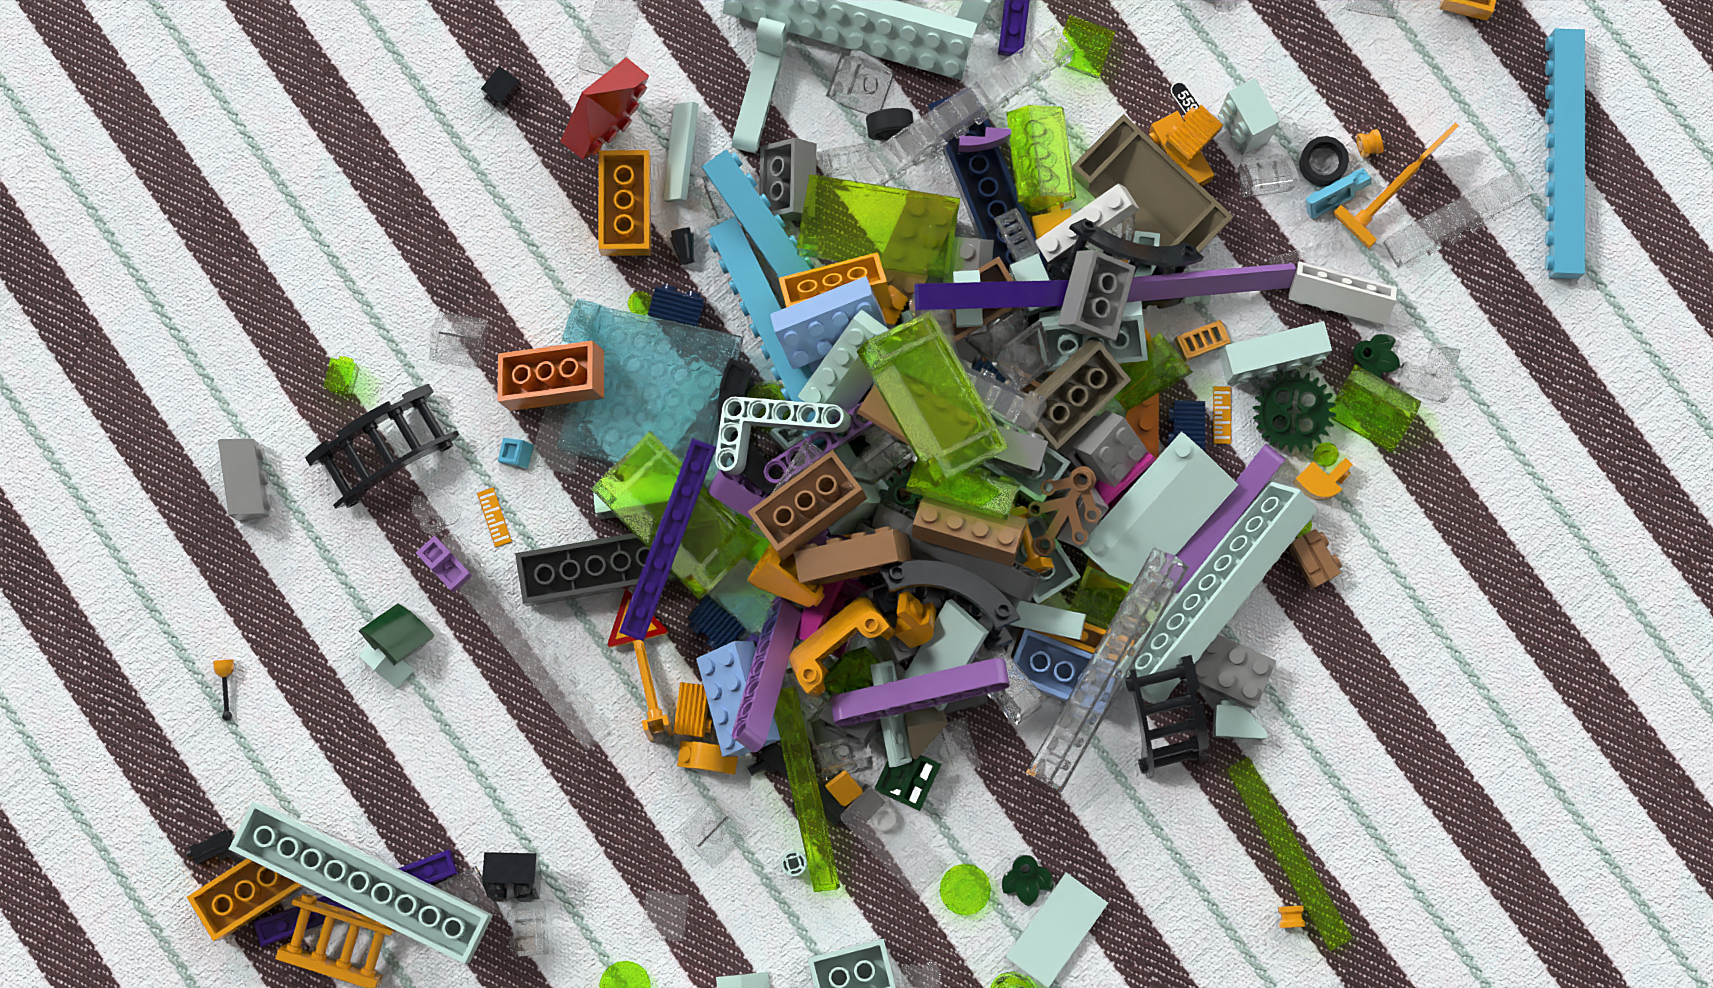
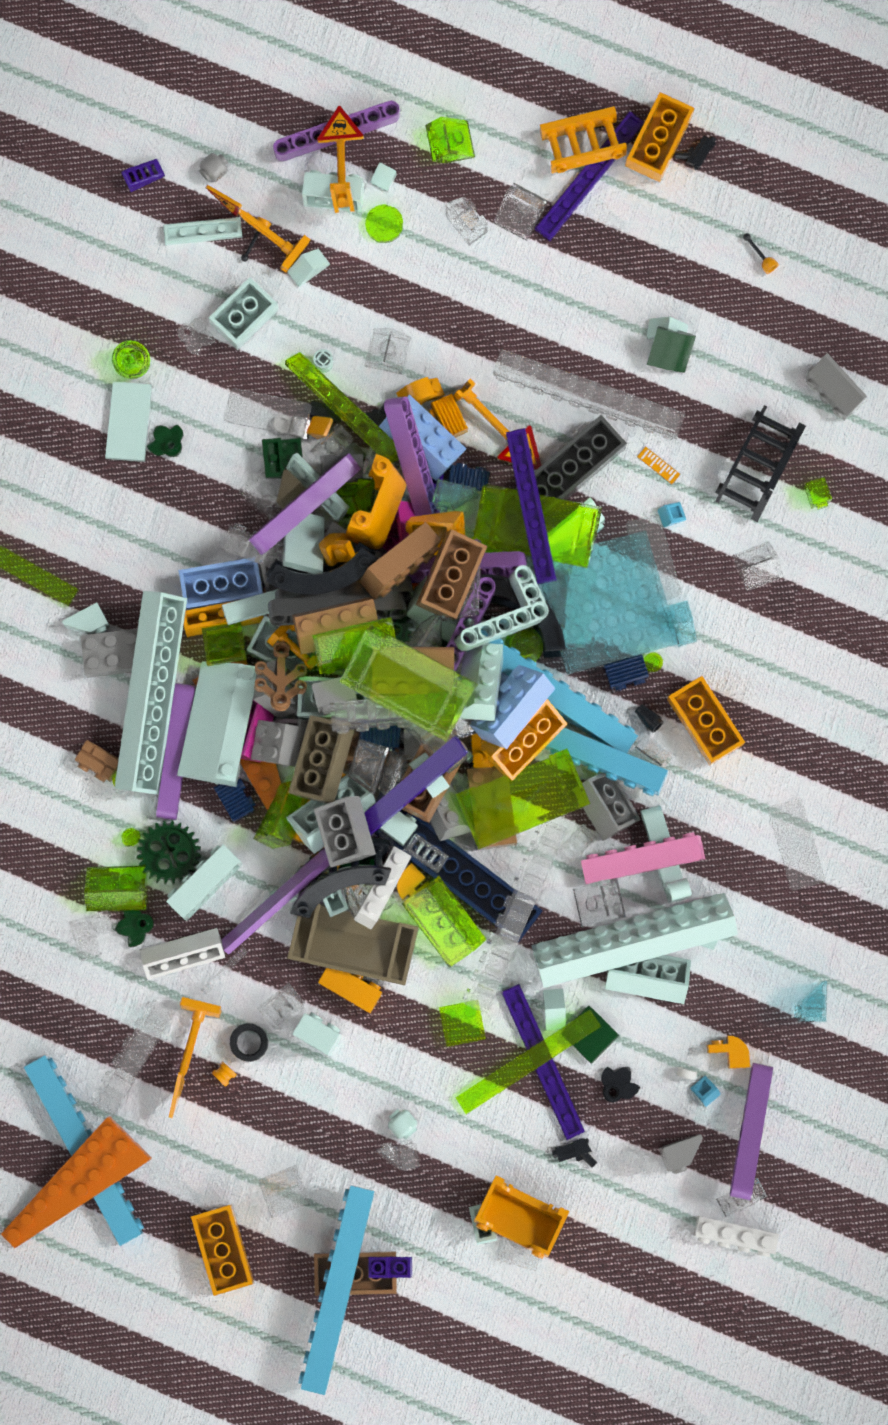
camera: 150 degrees right, 0 degrees up
(361, 882) = (589, 177): light aqua brick -> none
(437, 508) = (699, 447): clear plate -> none
(444, 564) = (668, 409): medium lavender slope -> none
(500, 88) = (841, 749): black brick -> none
(511, 876) = (498, 243): black brick -> none
(551, 375) = (678, 572): orange brick -> none
(605, 109) = (757, 769): red slope -> none
(664, 915) = (386, 281): clear piece -> none
(680, 152) = (691, 780): light aqua tile -> none
(786, 94) = (643, 859): none -> bright pink brick
(887, 123) = (560, 883): black tyre -> none
(965, 889) = (203, 411): clear neon green tile -> none
(993, 138) = (484, 910): medium lavender slope -> none
(1107, 669) = (191, 596): clear brick -> none
(1184, 96) = (365, 1028): black sticker -> none
(1184, 348) = (258, 855): light orange slope -> none
(1193, 134) = (348, 998): light orange brick -> none
(1196, 723) = (108, 591): black fence -> none
(1222, 414) = (216, 824): light orange sticker -> none
(1318, 484) = (122, 813): light orange brick -> none
(1336, 193) = (226, 1025): medium azure hinge -> none
(1570, 121) = (93, 1168): none -> orange wing

